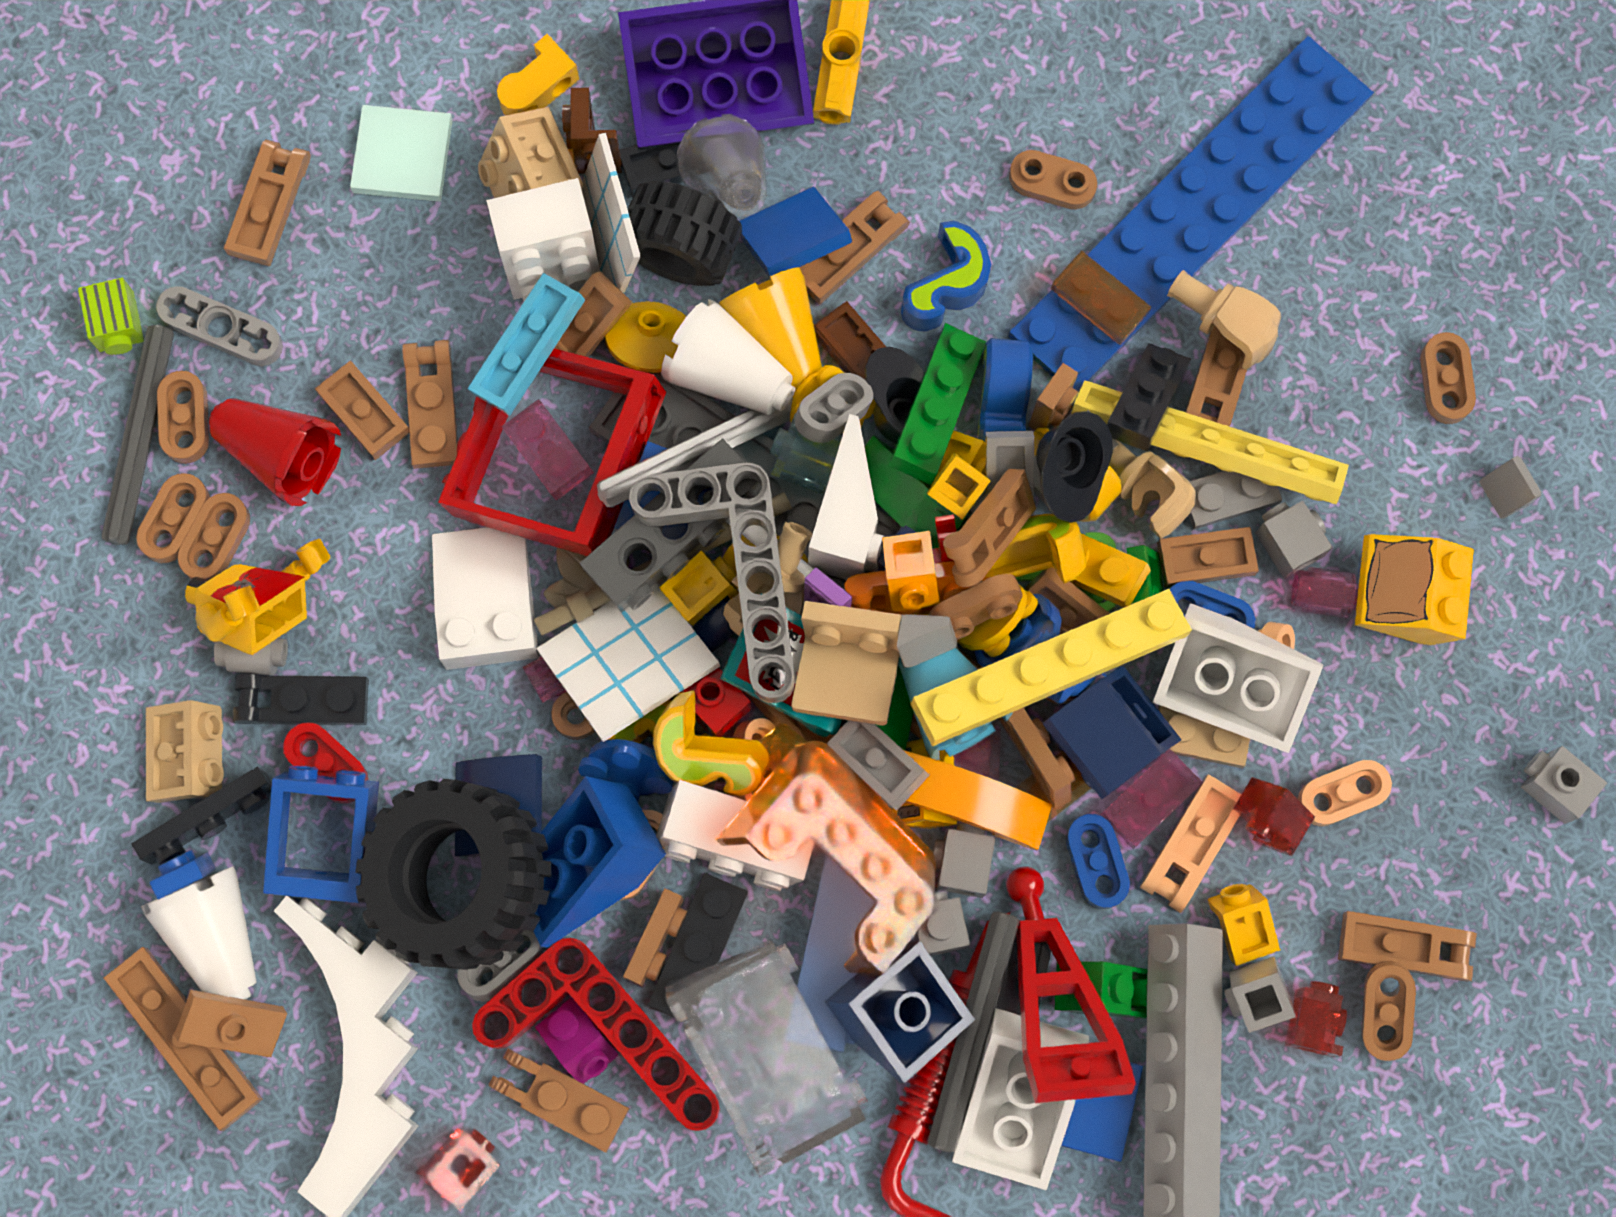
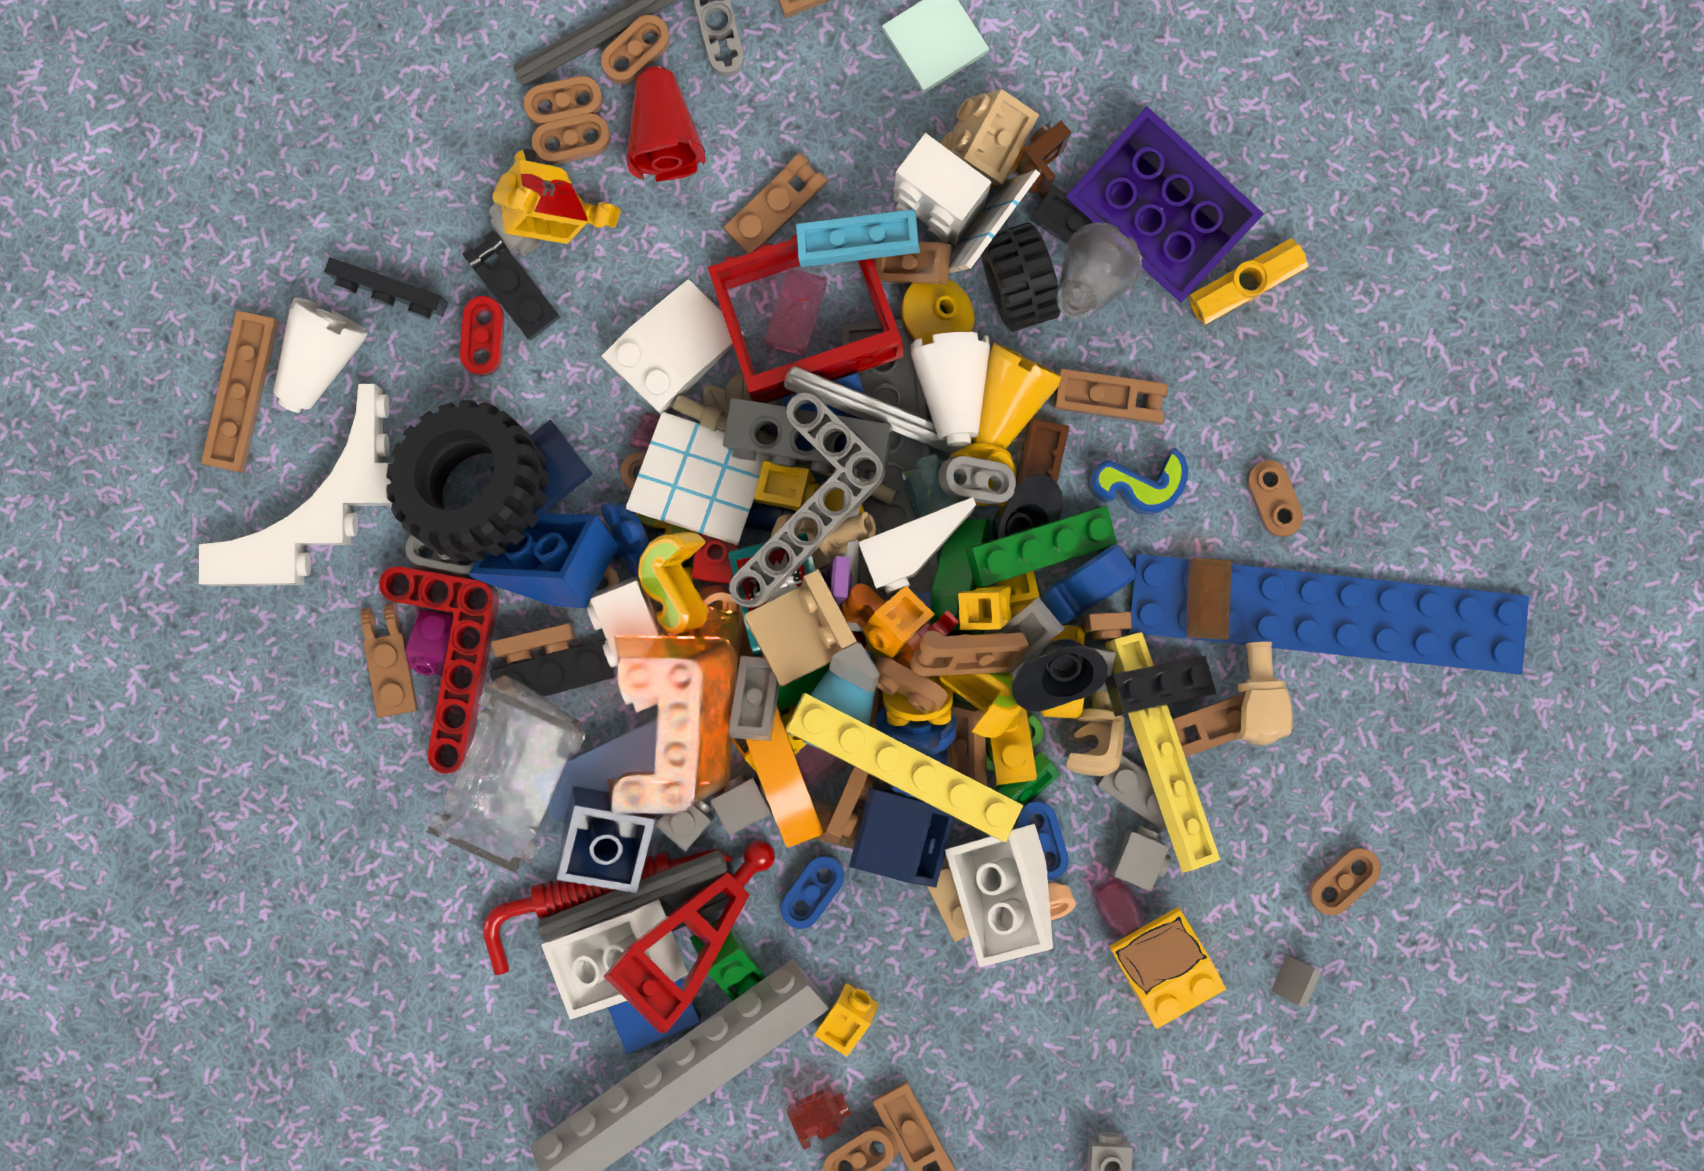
camera: 55 degrees right, 10 degrees up
(181, 872) = (337, 306): blue plate -> none
(183, 751) = (417, 239): tan bracket -> none
(230, 1023) = (269, 415): medium nougat plate -> none
(309, 882) = (398, 391): blue window -> none
(362, 410) = (734, 163): medium nougat plate -> none
(461, 1186) = (283, 640): clear red brick -> none
(539, 81) = (1057, 90): yellow leg -> none
(794, 232) = (1088, 353): blue tile -> none
(1151, 798) = (882, 896): clear pink plate -> none
(1194, 842) = (876, 946): light nougat plate -> none
(1208, 556) = (1081, 810): medium nougat plate -> none
(1259, 995) = (804, 1066): light grey brick -> none
(1273, 816) = (932, 987): clear red brick -> none
(1343, 794) = (987, 1022): light nougat plate -> none

